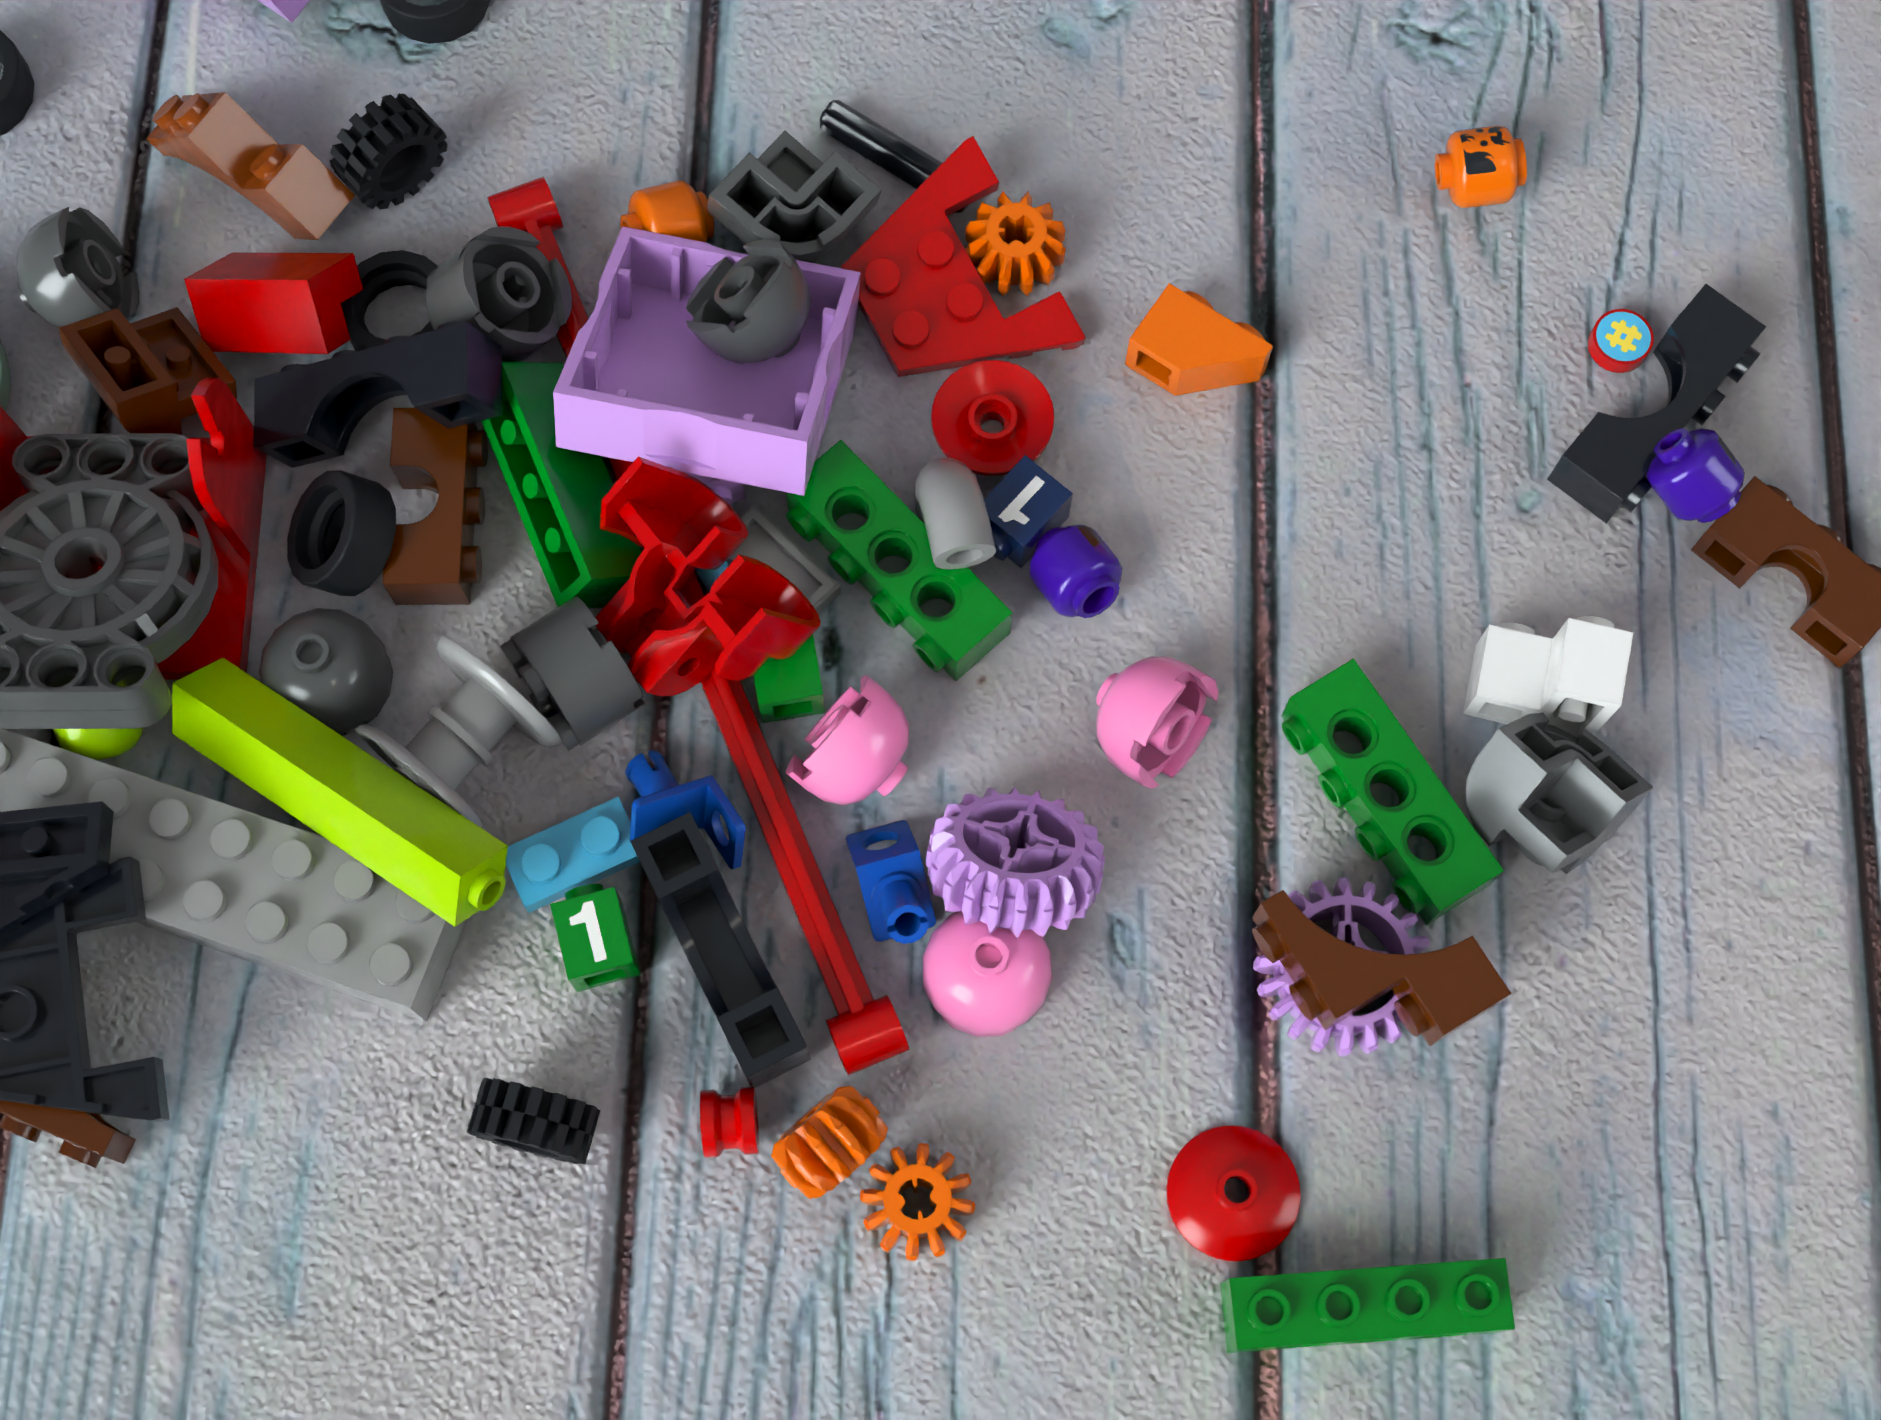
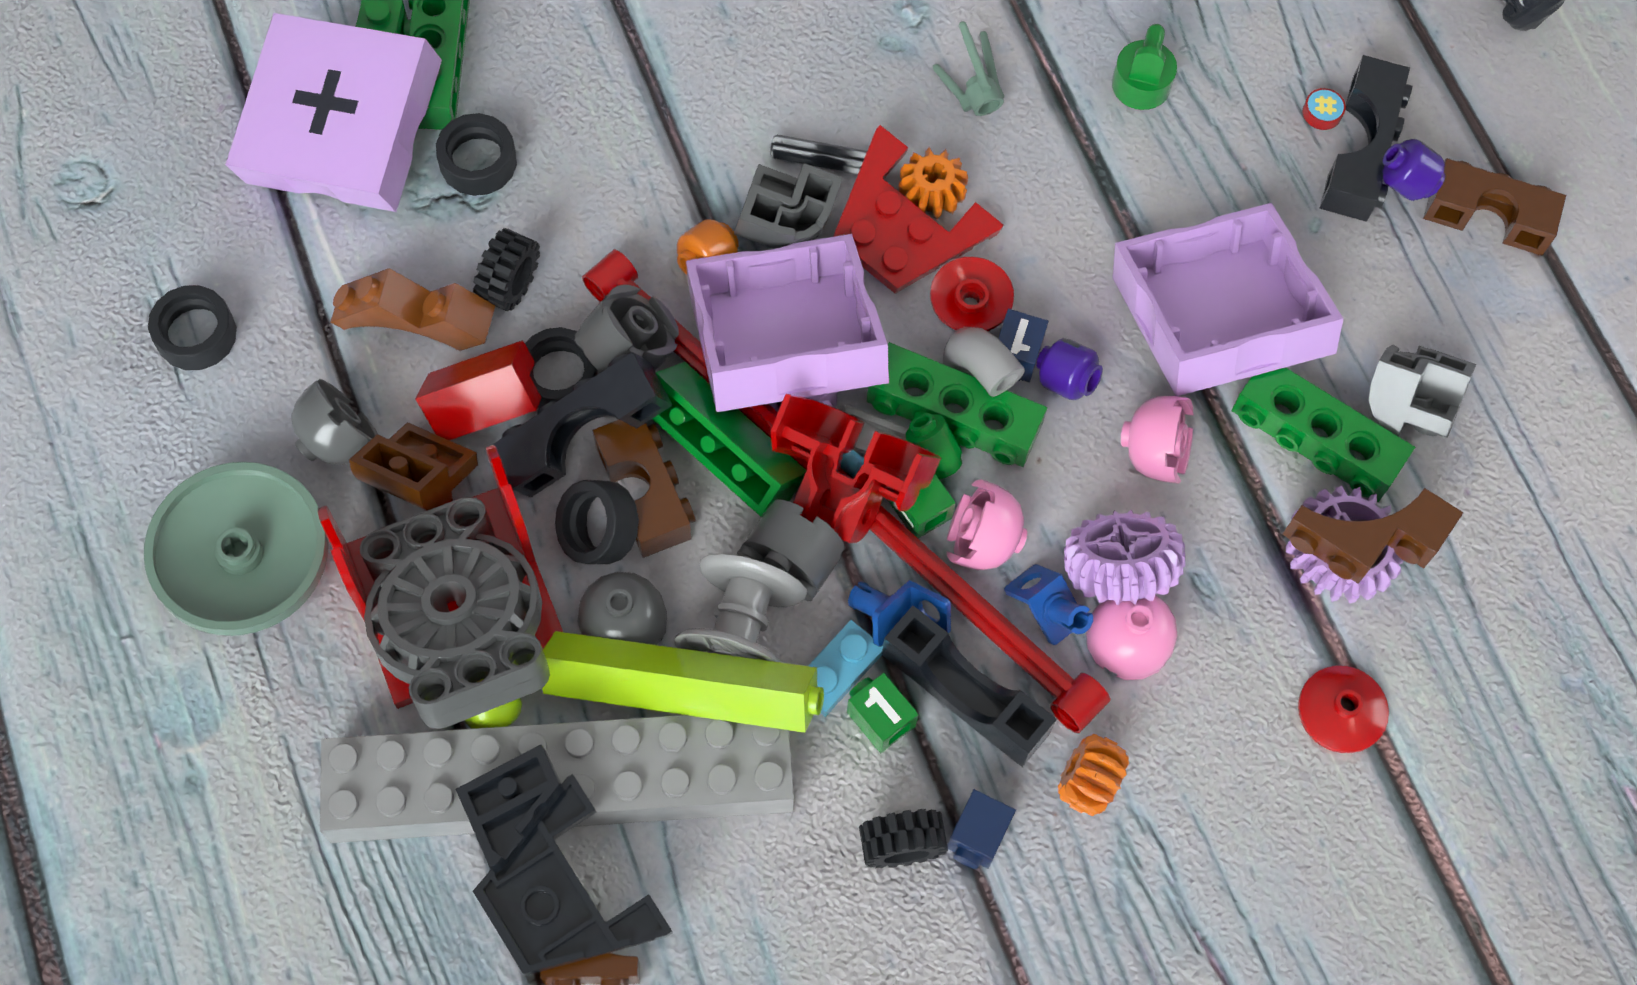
camera: 25 degrees left, 5 degrees down
(646, 1152) = (980, 830): none -> dark blue brick
(729, 1122) = (1022, 790): red wheel -> none
(751, 306) = (795, 277): dark grey cylinder -> none
(841, 602) = (934, 434): none -> green brick
(895, 1204) = (1175, 784): orange gear -> none
(1145, 144) = (983, 90): none -> sand green plant
(1193, 347) = (1075, 205): orange slope -> none
(1334, 558) = (1226, 299): none -> lavender tile
(1366, 1305) = (1457, 739): green brick -> none
(1384, 195) = (1145, 71): none -> green piece
(1481, 166) = (1195, 33): orange head -> none
(1569, 678) = (1401, 316): white brick -> none

